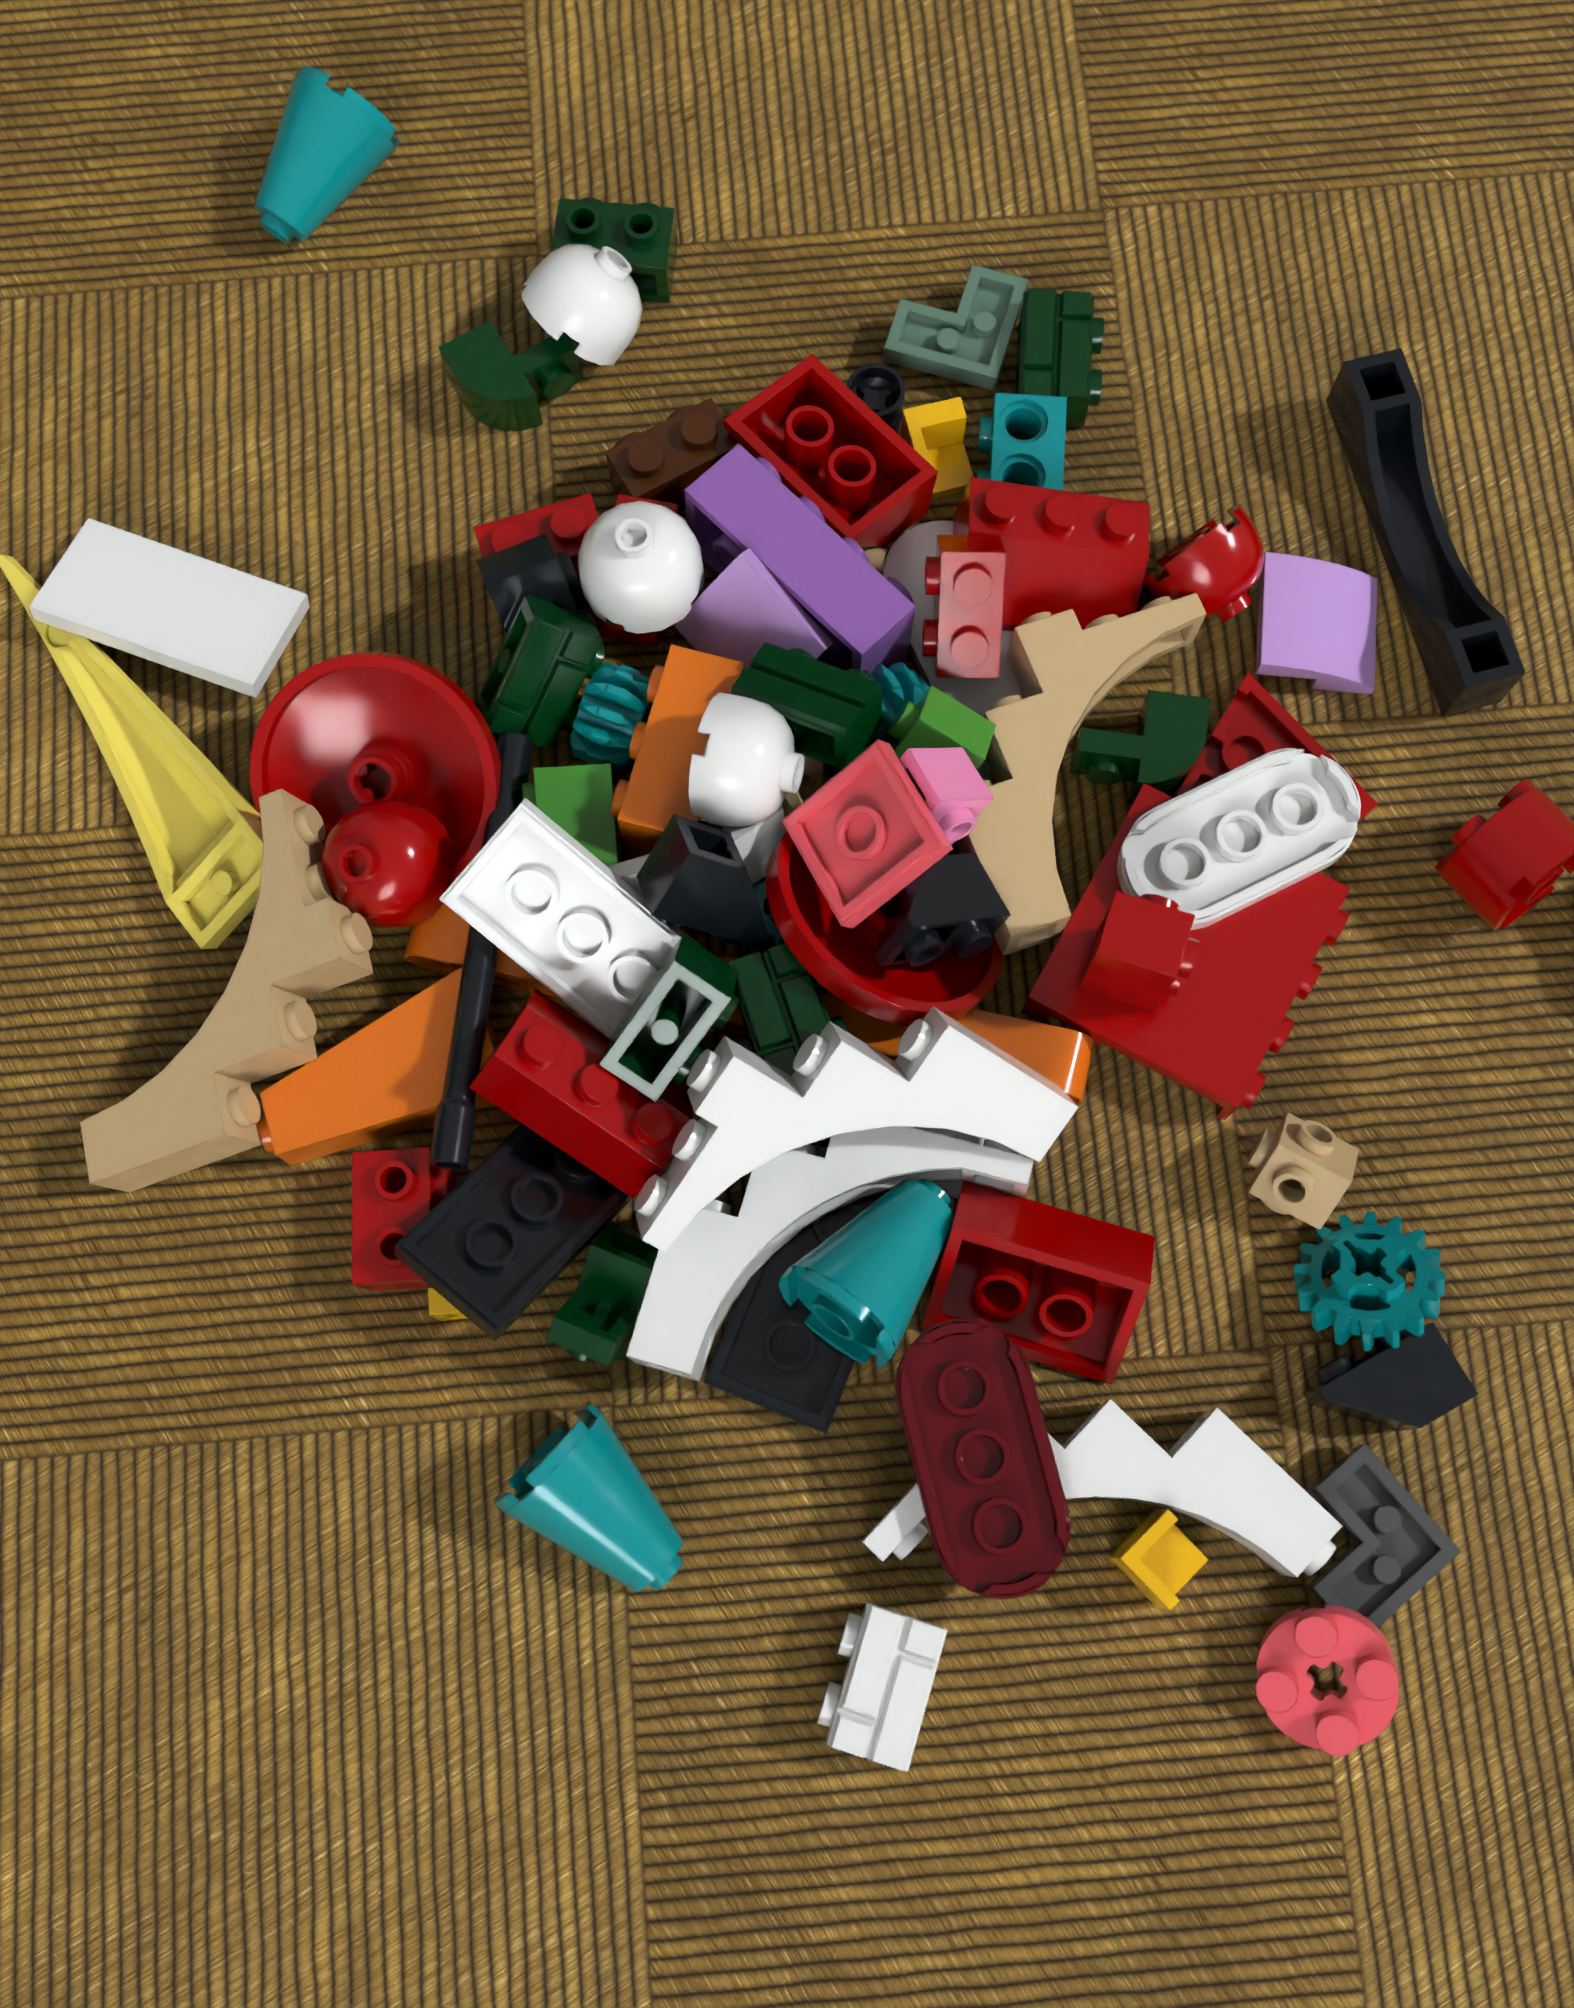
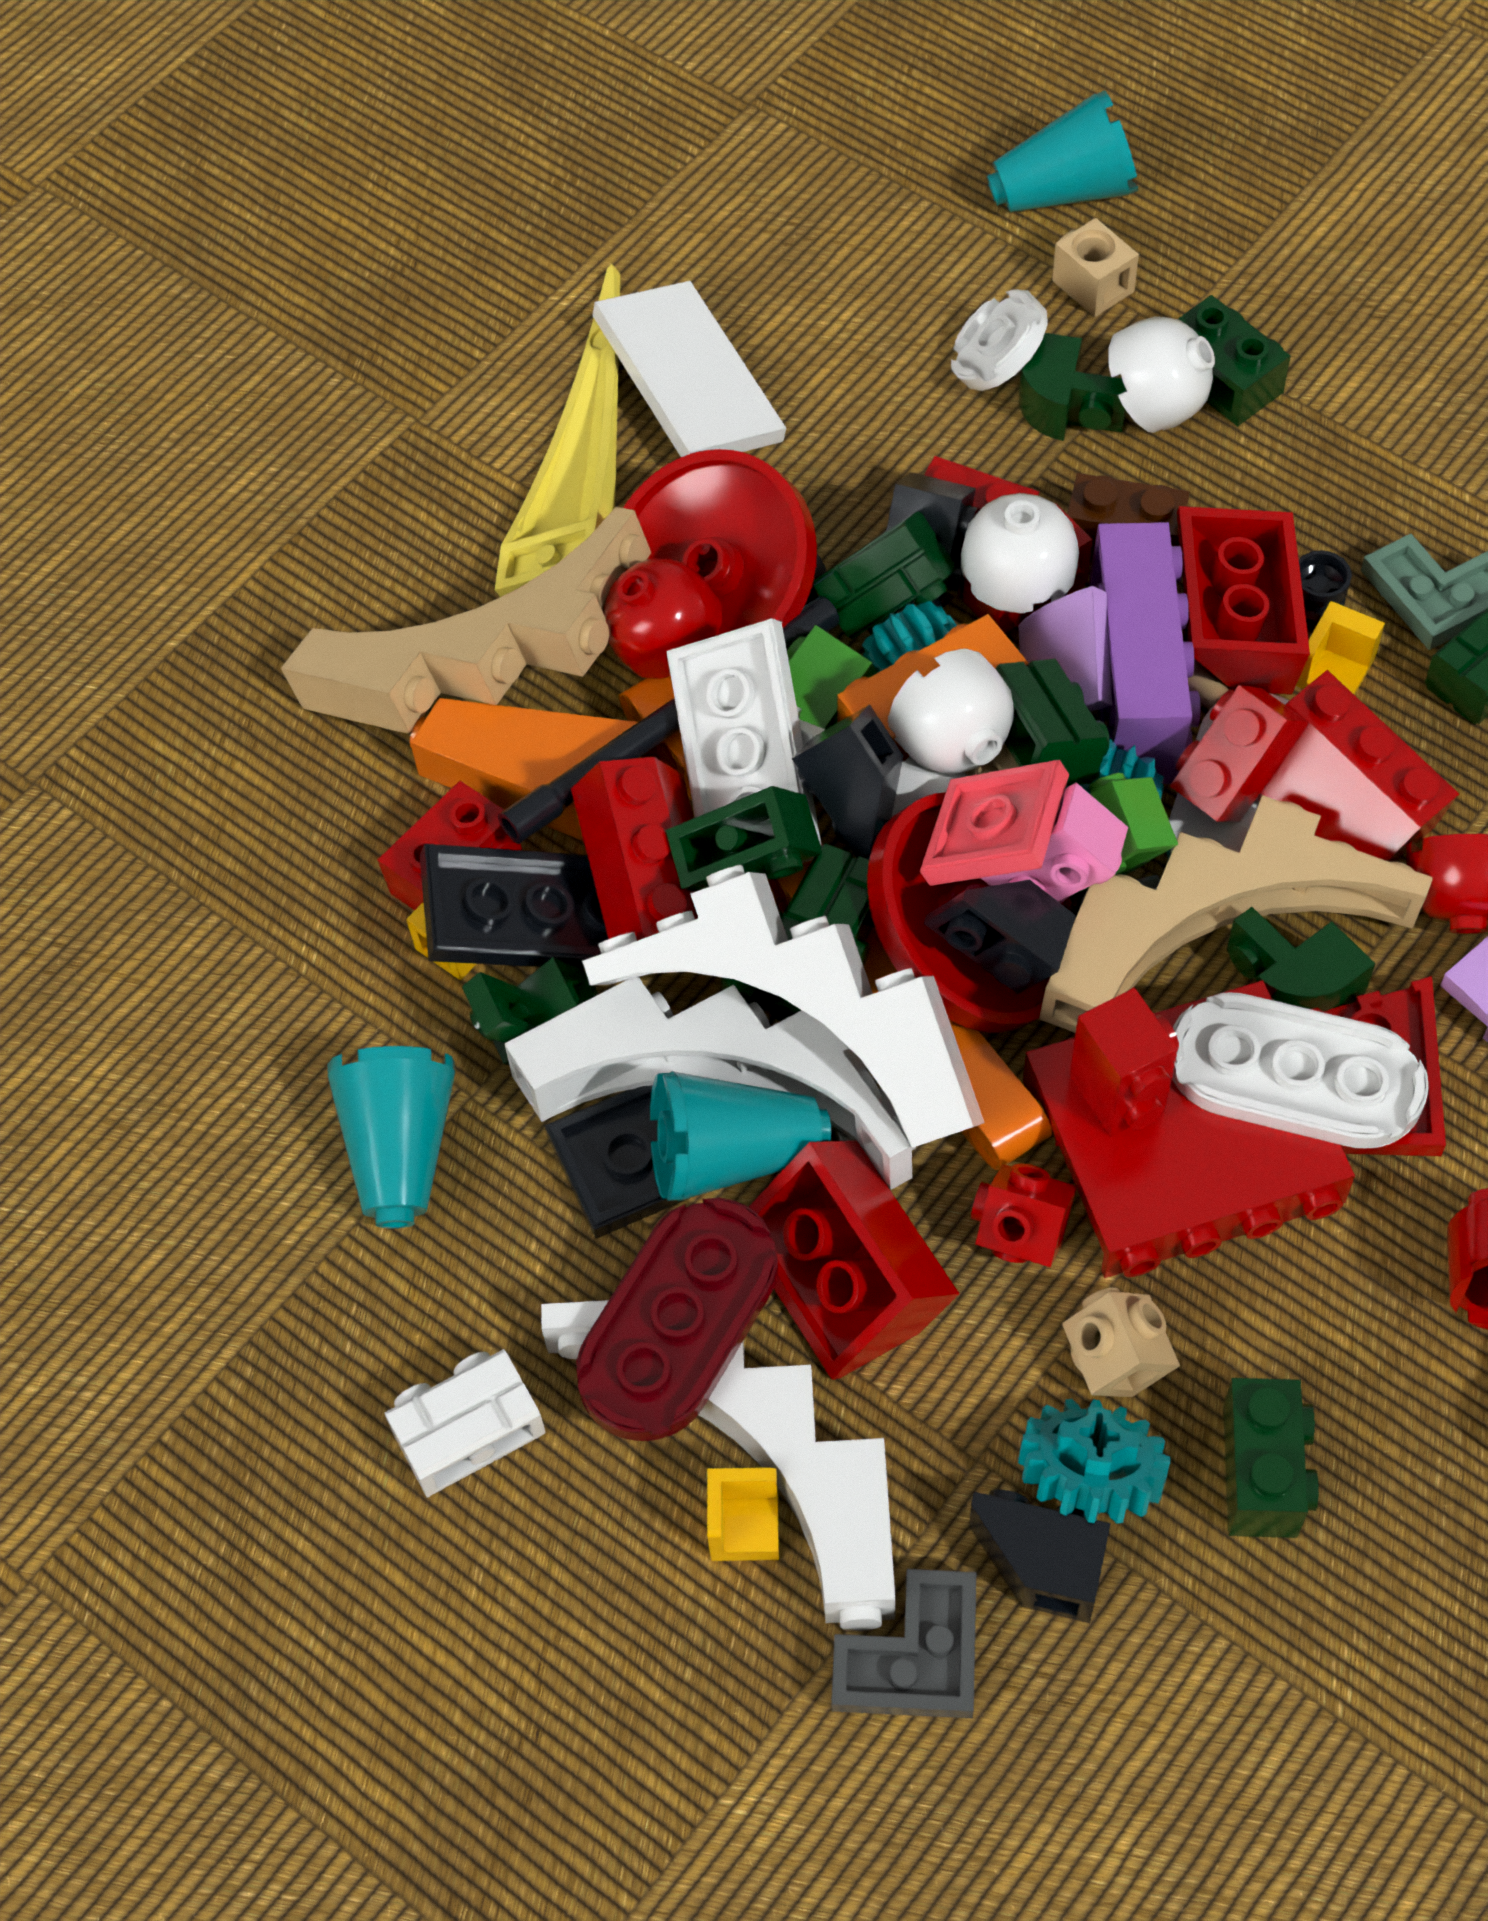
camera: 45 degrees right, 15 degrees down
(419, 373) = (999, 340): none -> white tile
(448, 246) = (1095, 267): none -> tan brick
(1030, 461) = (1410, 713): teal brick -> none
(1142, 1129) = (1023, 1214): none -> red brick
(1331, 1718) = (813, 1724): coral plate -> none
(1479, 1165) = (1266, 1458): none -> dark green brick

